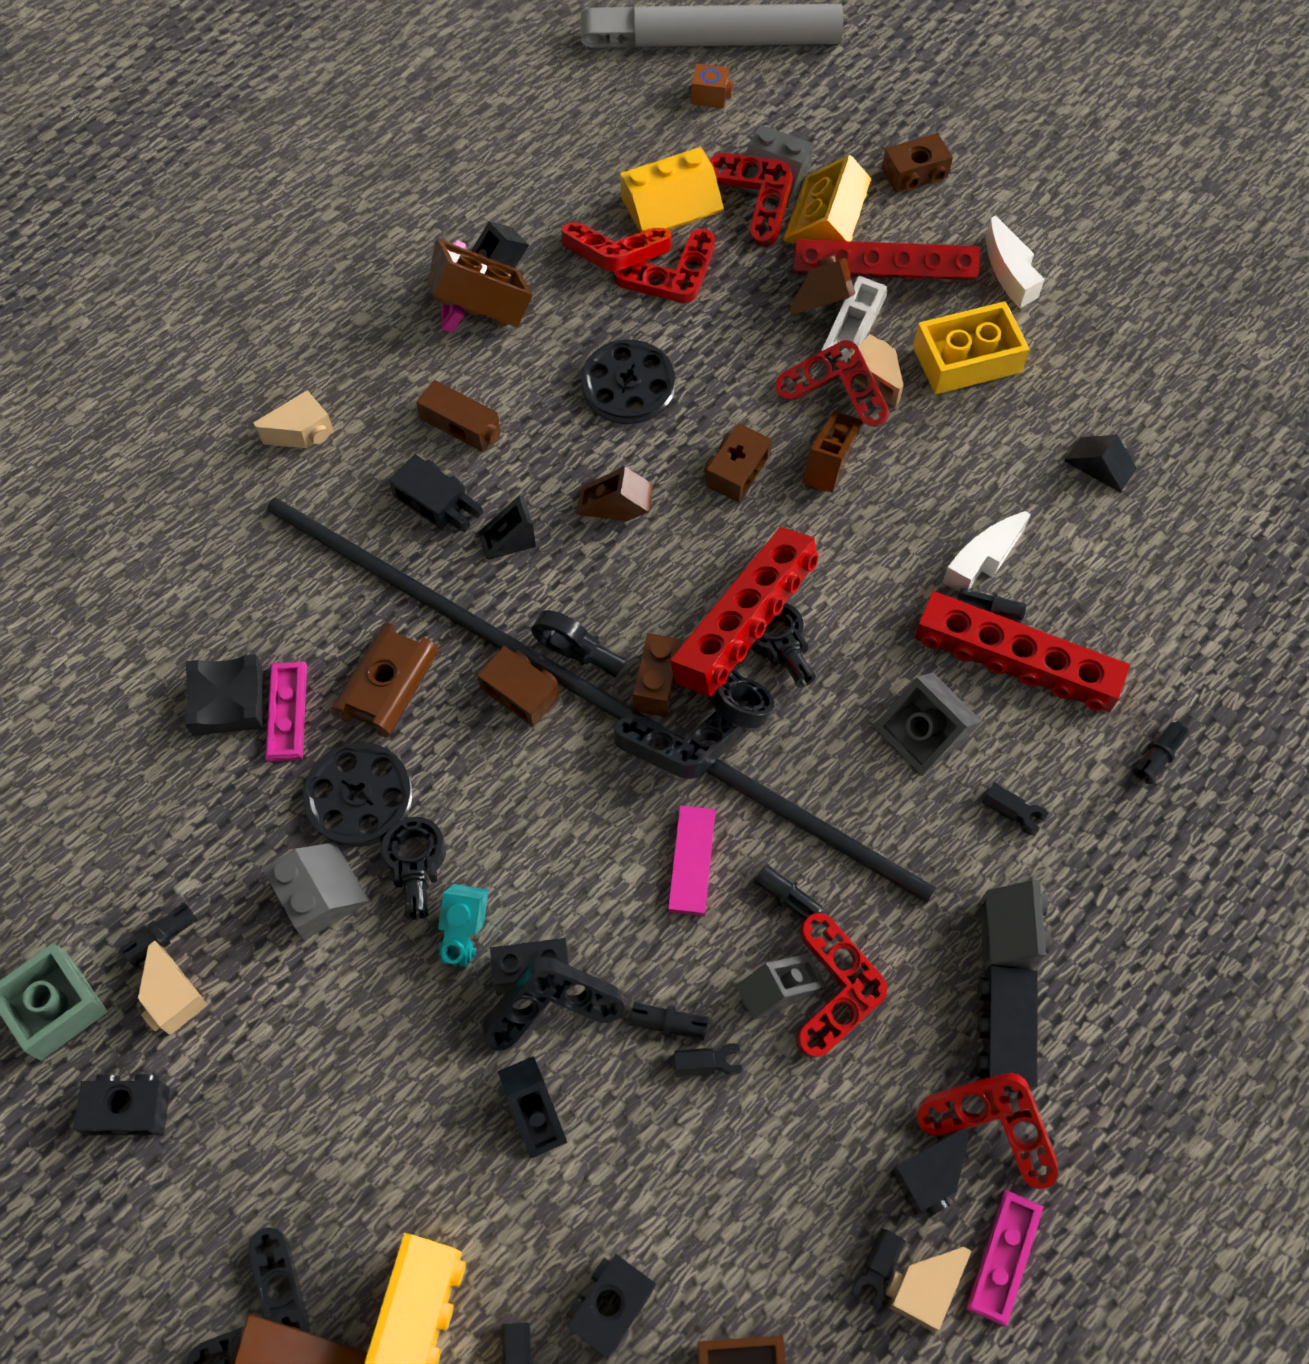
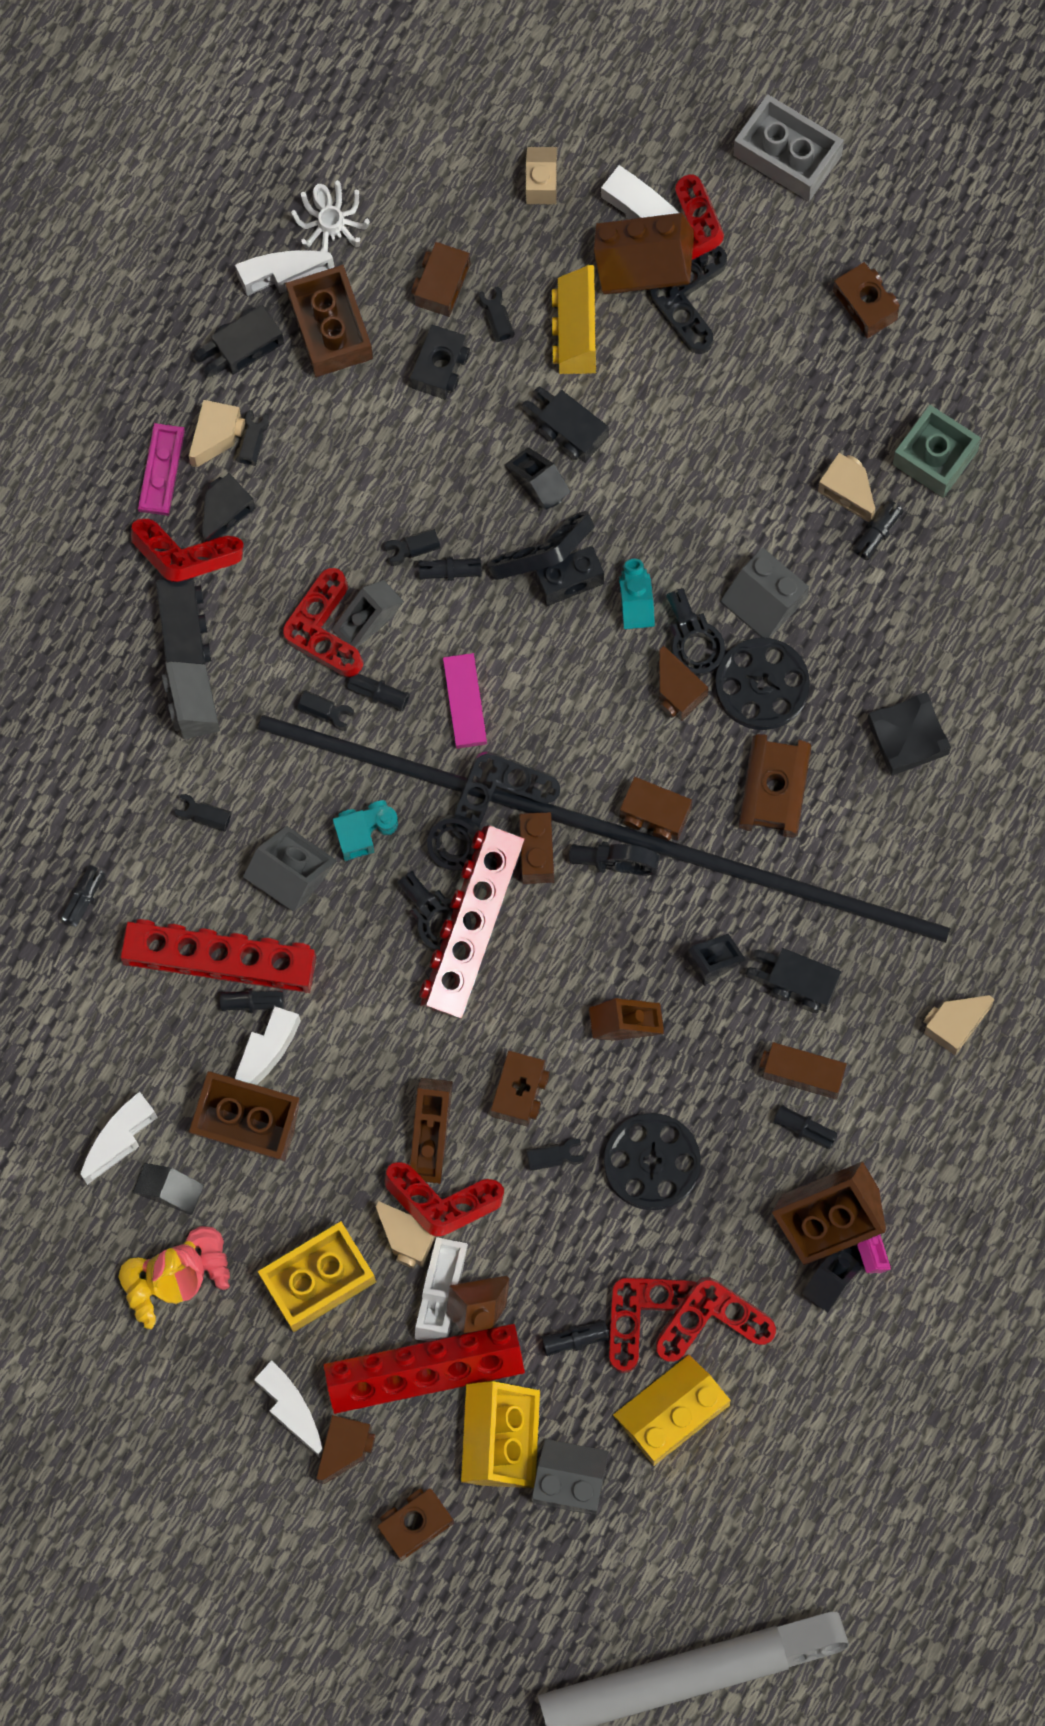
camera: 170 degrees right, 10 degrees up
(55, 1254) = (868, 316): none -> reddish brown brick
(99, 1099) = (858, 386): black brick -> none
(286, 712) = (853, 741): dark pink tile -> none
(451, 807) = (678, 686): none -> reddish brown slope
(471, 1168) = (568, 424): none -> black hinge
(476, 376) = (805, 1127): none -> black axle
(711, 86) = (669, 1580): dark orange brick -> none
(718, 405) = (553, 1155): none -> black bar
(741, 263) = (575, 1338): none -> black pin
(768, 189) = (568, 1435): red beam -> none
(847, 746) = (355, 828): none -> teal brick
(854, 889) = (324, 709): none -> black bar
(968, 222) = (344, 1447): none -> reddish brown slope
(1022, 480) = (245, 1116): none -> reddish brown slope
(1103, 384) = (174, 1273): none -> hair
(1145, 510) = (117, 1137): none -> white slope

